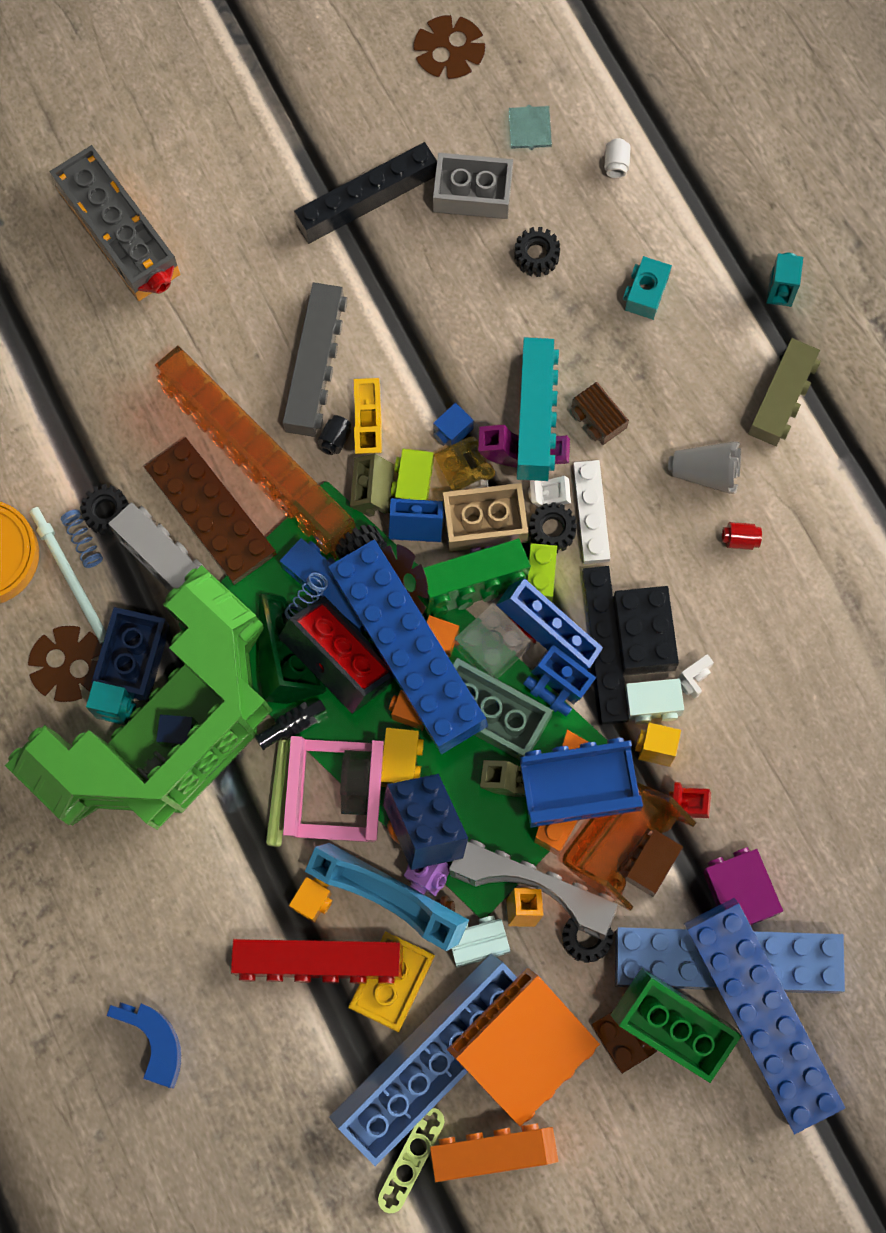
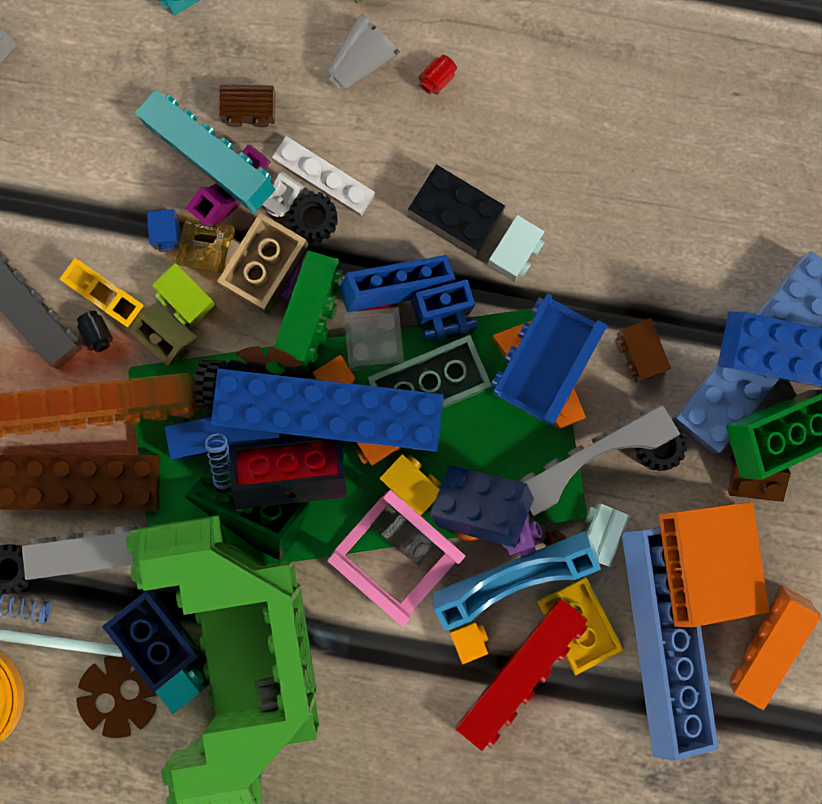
camera: 55 degrees left, 10 degrees up
(174, 730) = (252, 652): dark blue brick -> none
(278, 800) = (362, 602): yellowish green axle -> none
(291, 723) = (314, 552): black hinge -> none
(414, 1161) = (731, 712): yellowish green beam -> none
(416, 520) = (221, 321): blue brick -> none
(502, 778) = (491, 416): olive brick -> none
(524, 907) = (603, 477): light orange brick -> none
(537, 238) = (59, 31): black tyre -> none
(542, 570) = (339, 246): lime brick -> none
(604, 631) = (432, 244): black plate -> none
(611, 840) = (603, 383): clear orange windscreen -> none
(658, 744) = (557, 272): yellow brick -> none
(692, 800) = (617, 284): red bracket -> none
(697, 671) = (519, 196): white bracket -> none
(746, 881) = (711, 295): magenta brick -> none

